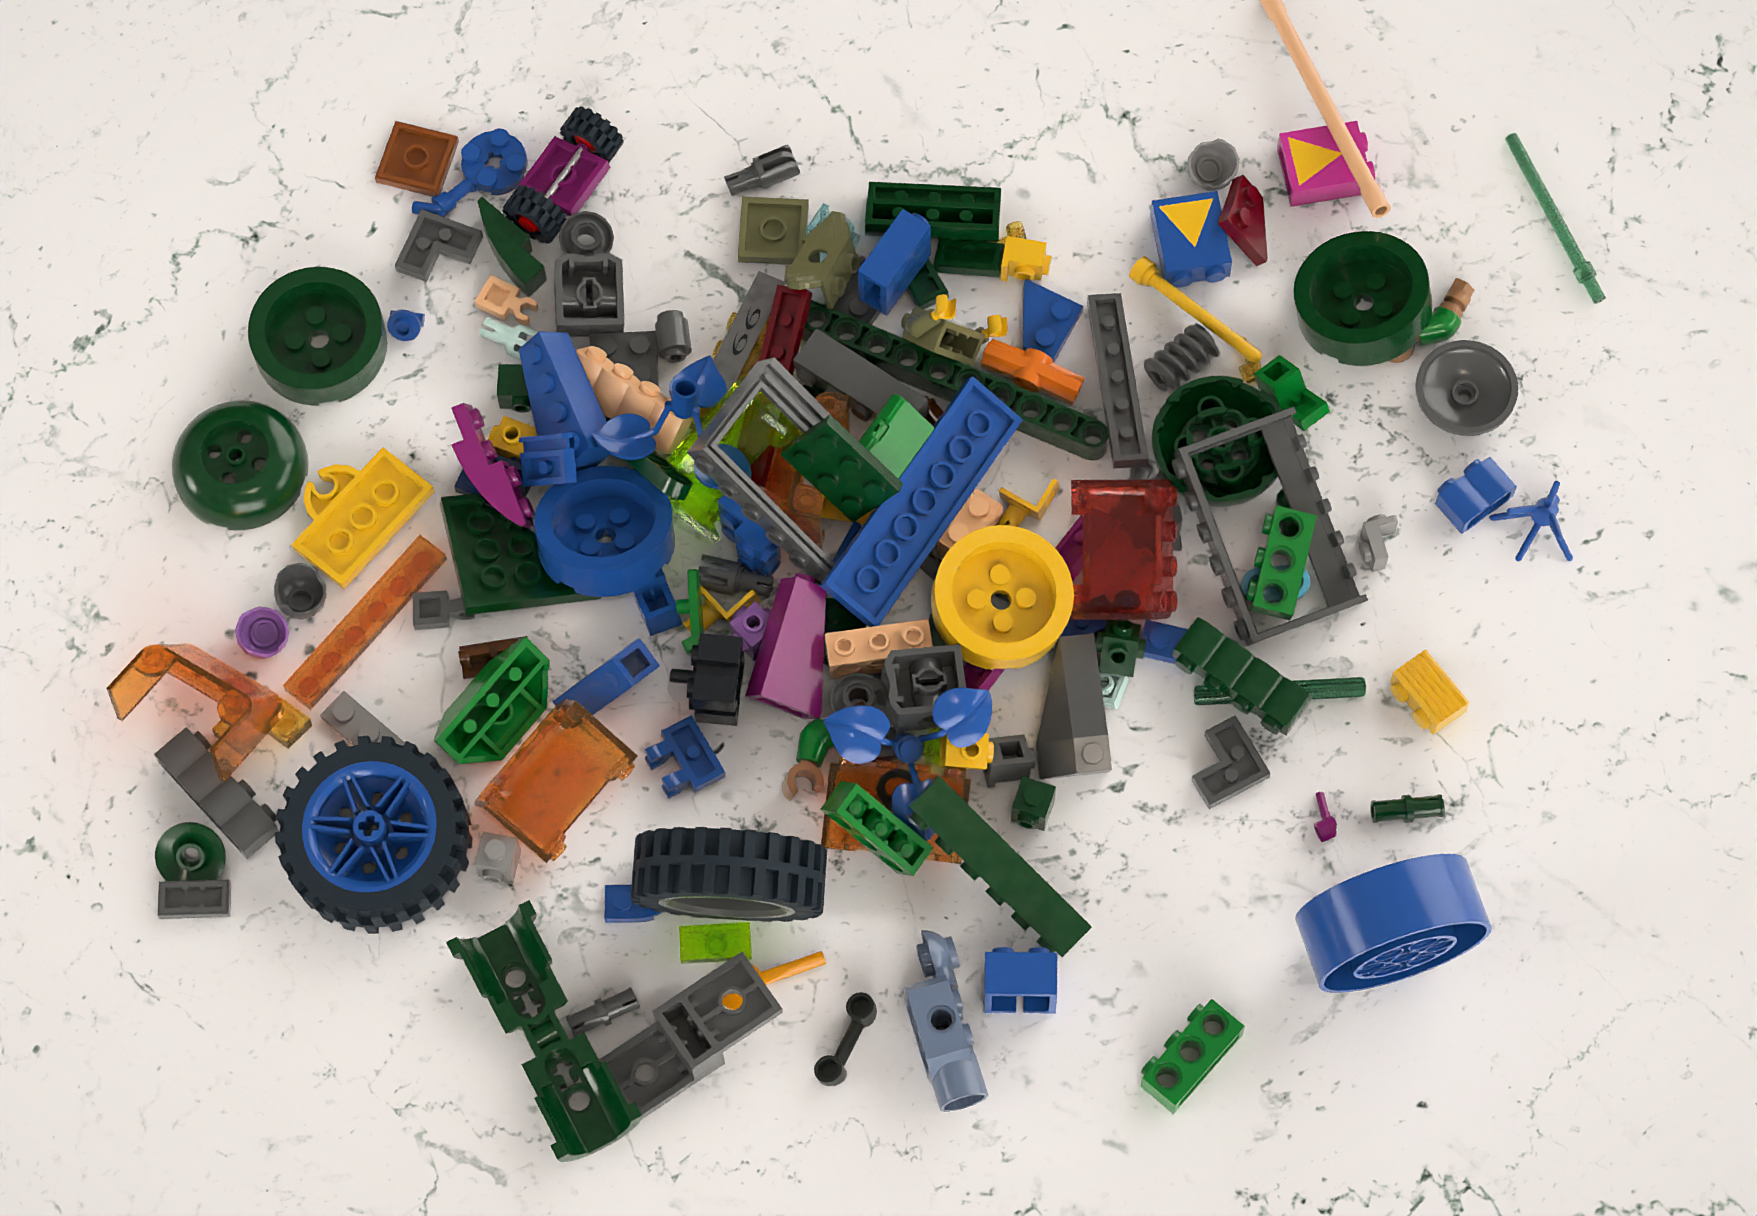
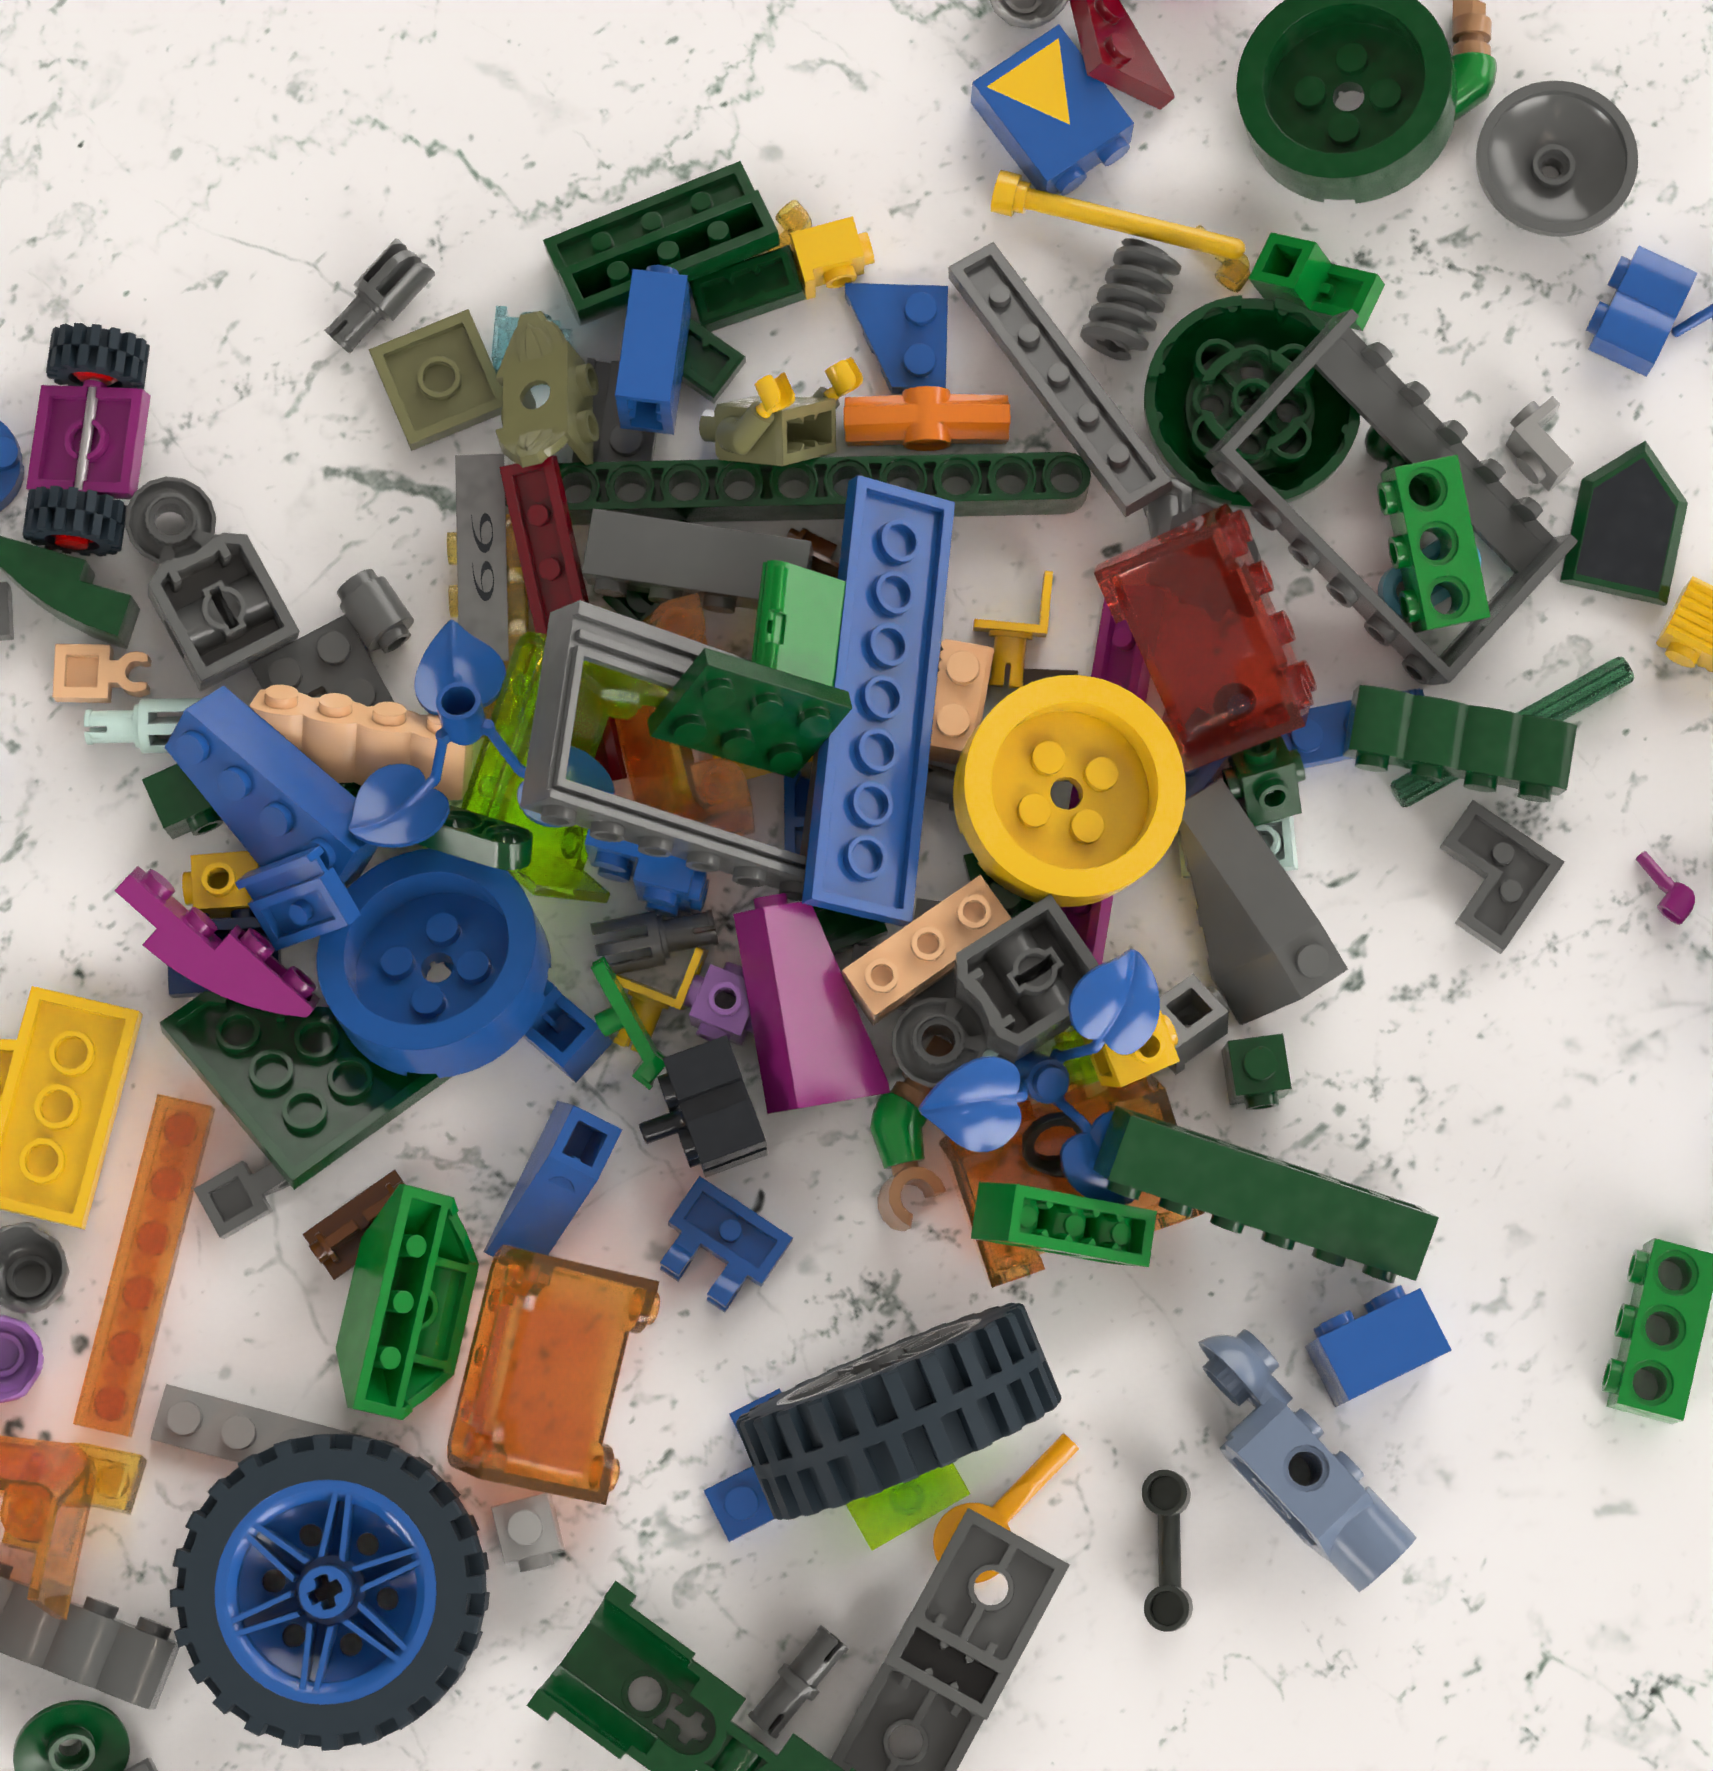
camera: 30 degrees left, 10 degrees up
(1405, 612) = (1627, 529): none -> black tile

